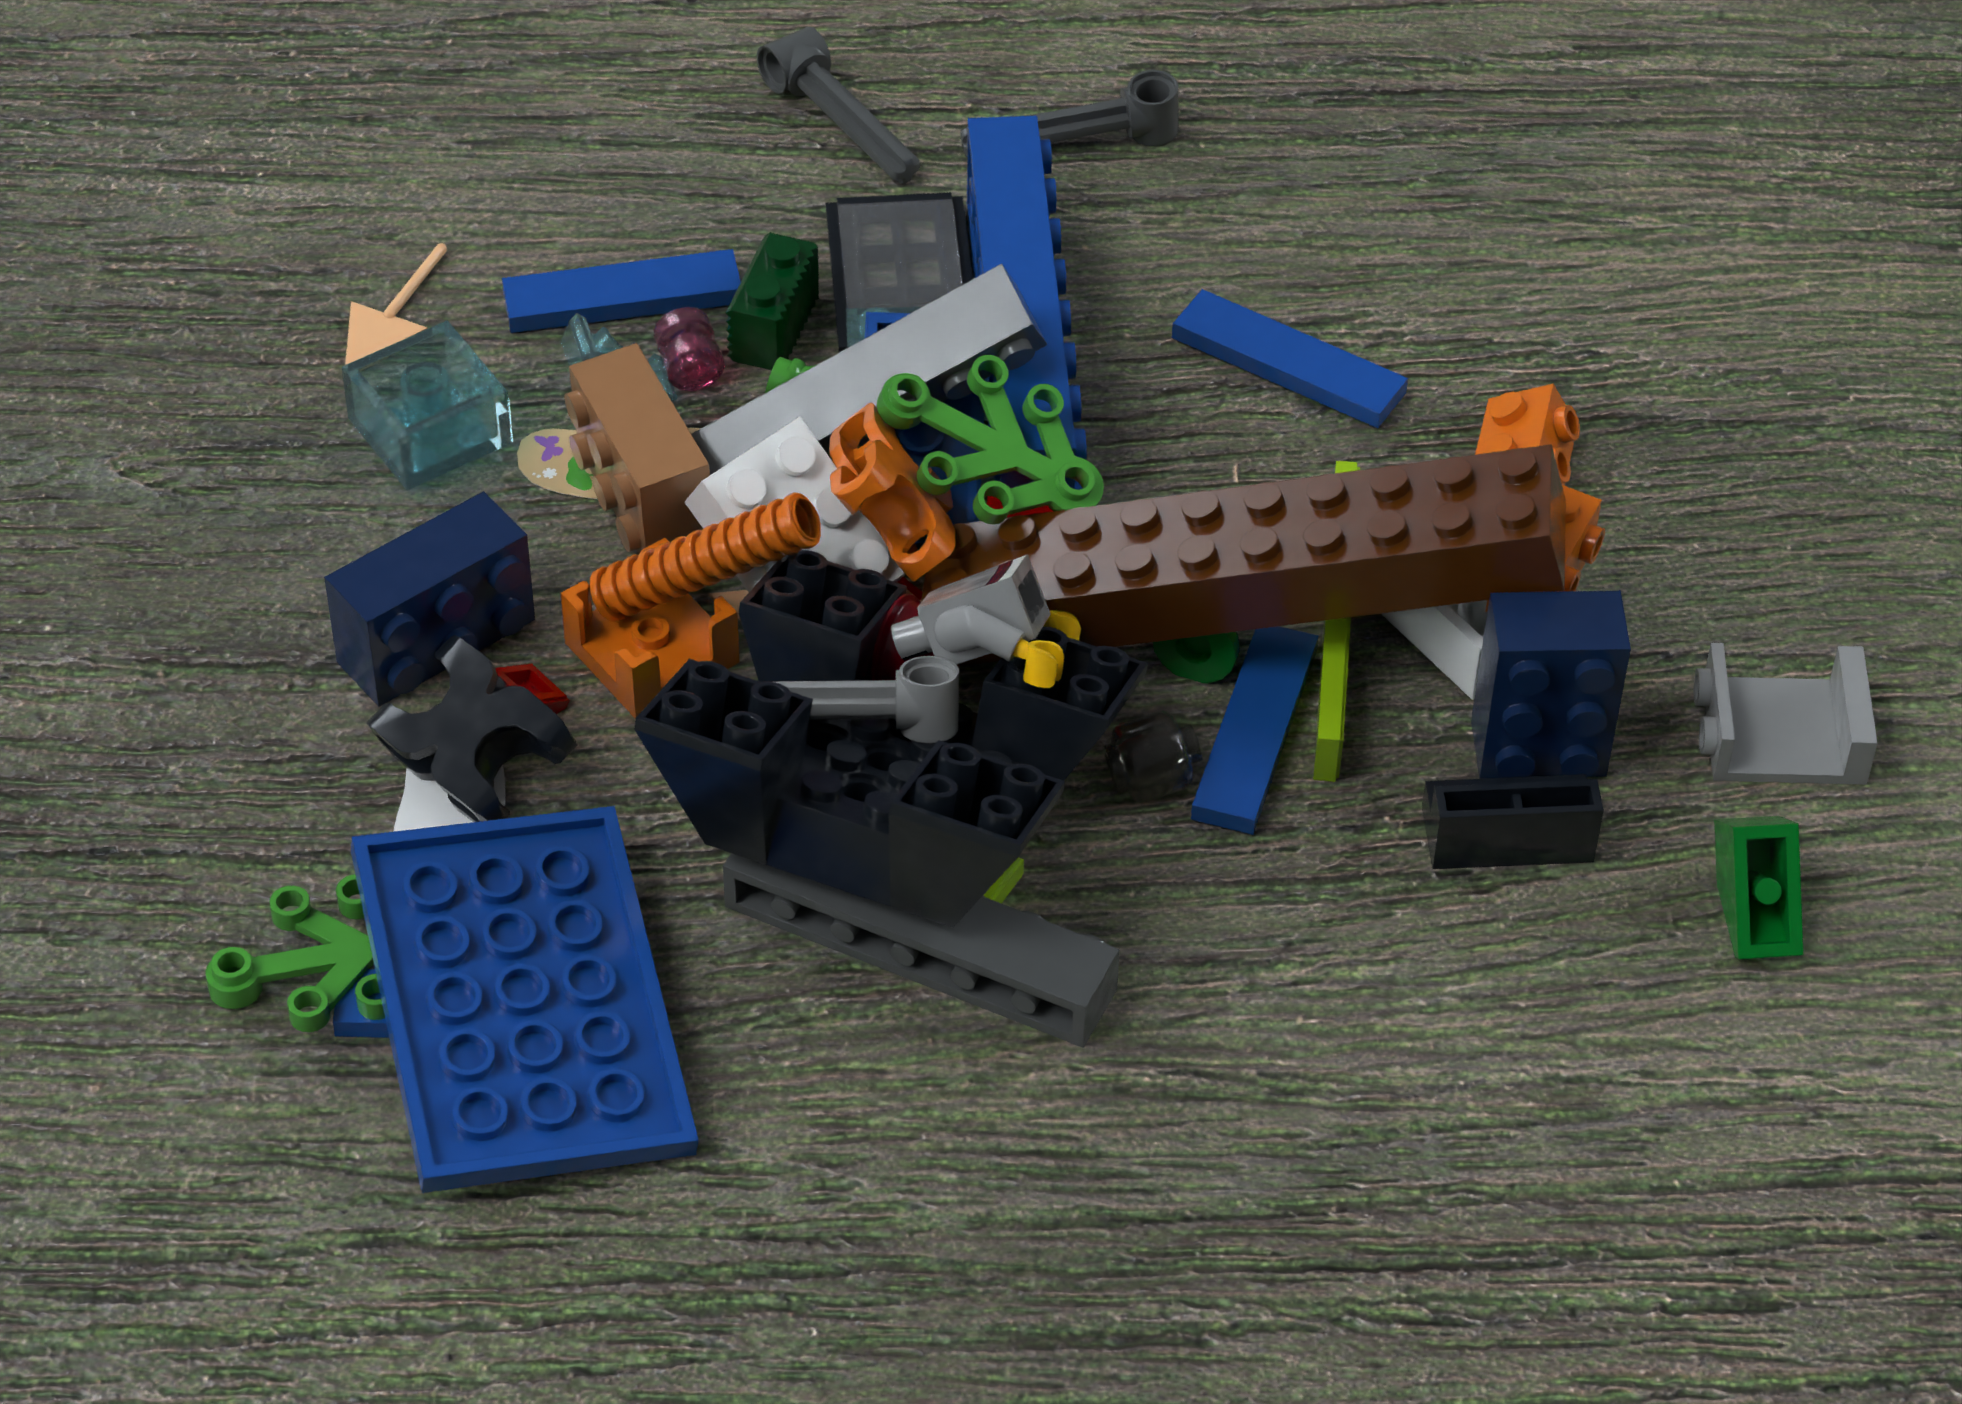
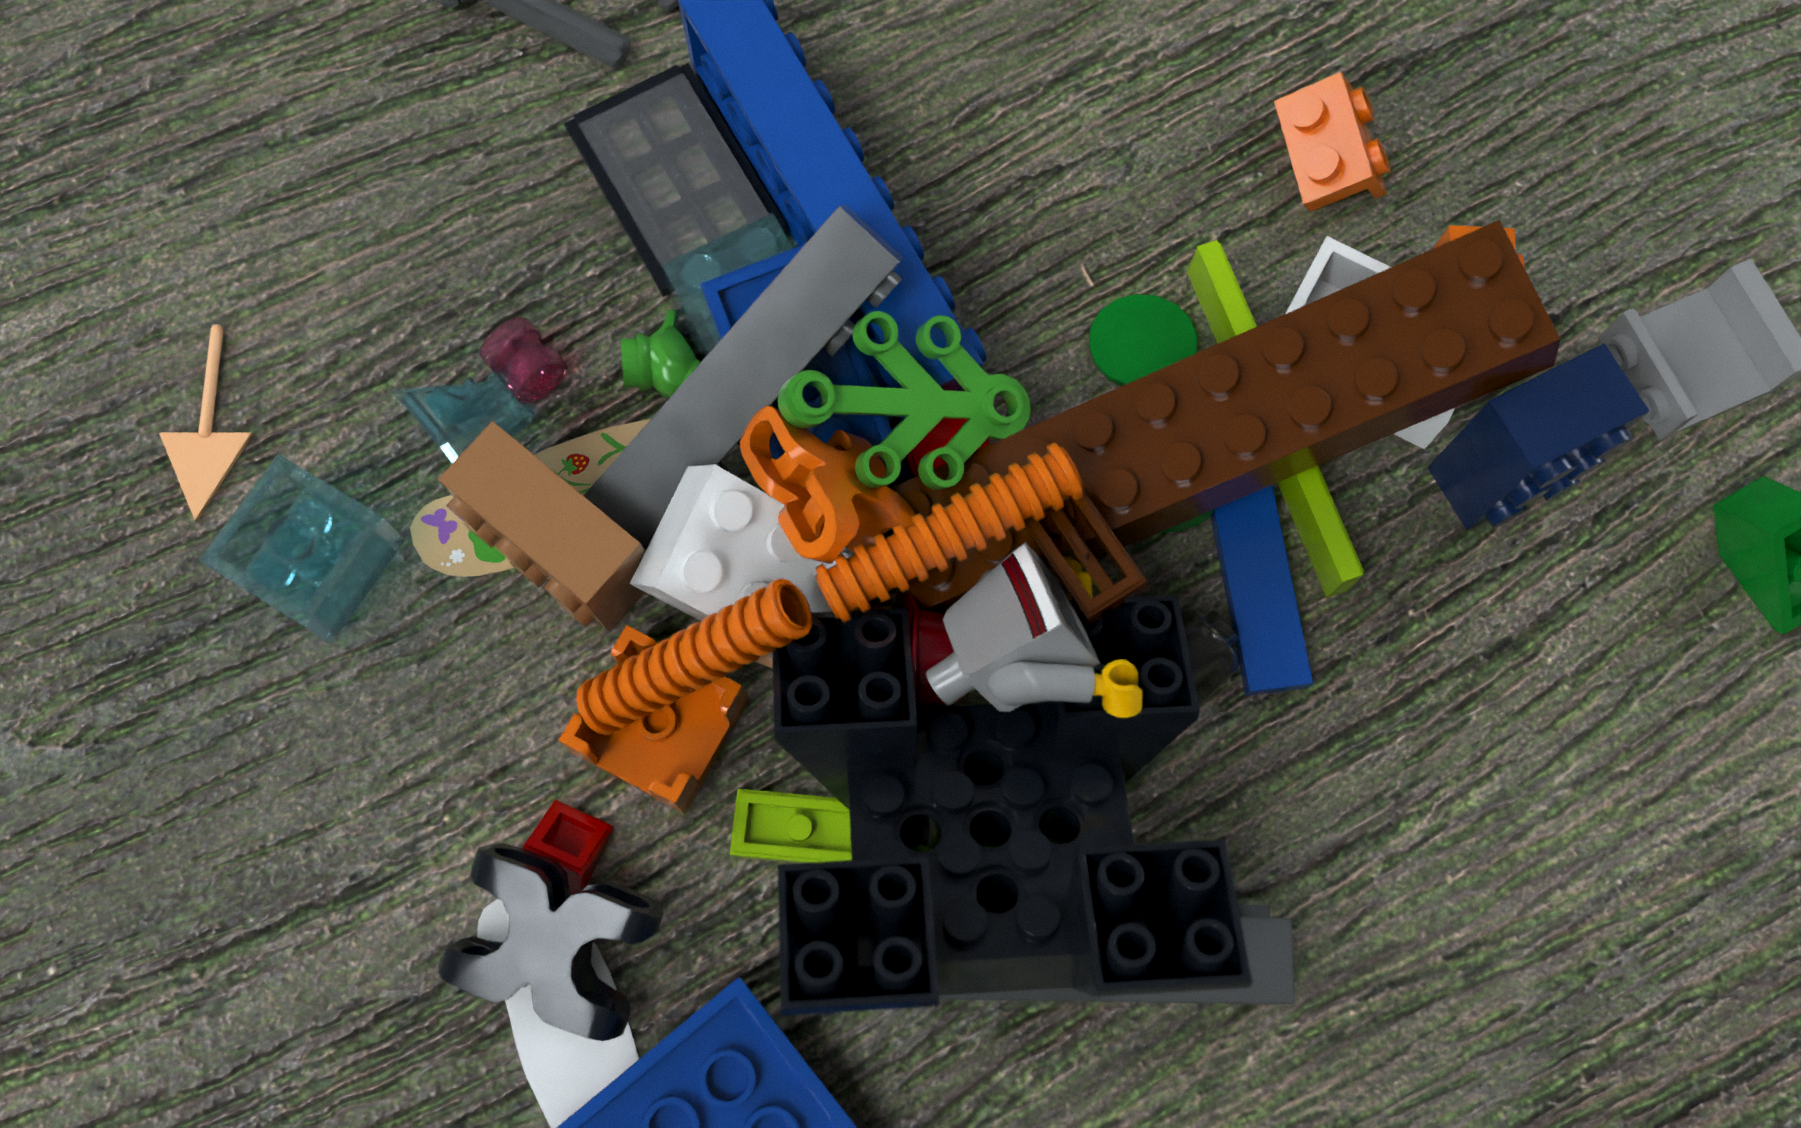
camera: 25 degrees left, 25 degrees up
(442, 579) = (429, 800): dark blue brick -> none
(621, 290) = (419, 310): blue tile -> none
(773, 301) = (577, 270): dark green brick -> none
(920, 699) = (928, 790): light grey axle -> none
(965, 522) = (950, 531): none -> orange piece
(1081, 614) = (1111, 594): none -> reddish brown tile
(1290, 358) = (1075, 126): blue tile -> none
(1512, 821) = (1533, 574): black piece -> none

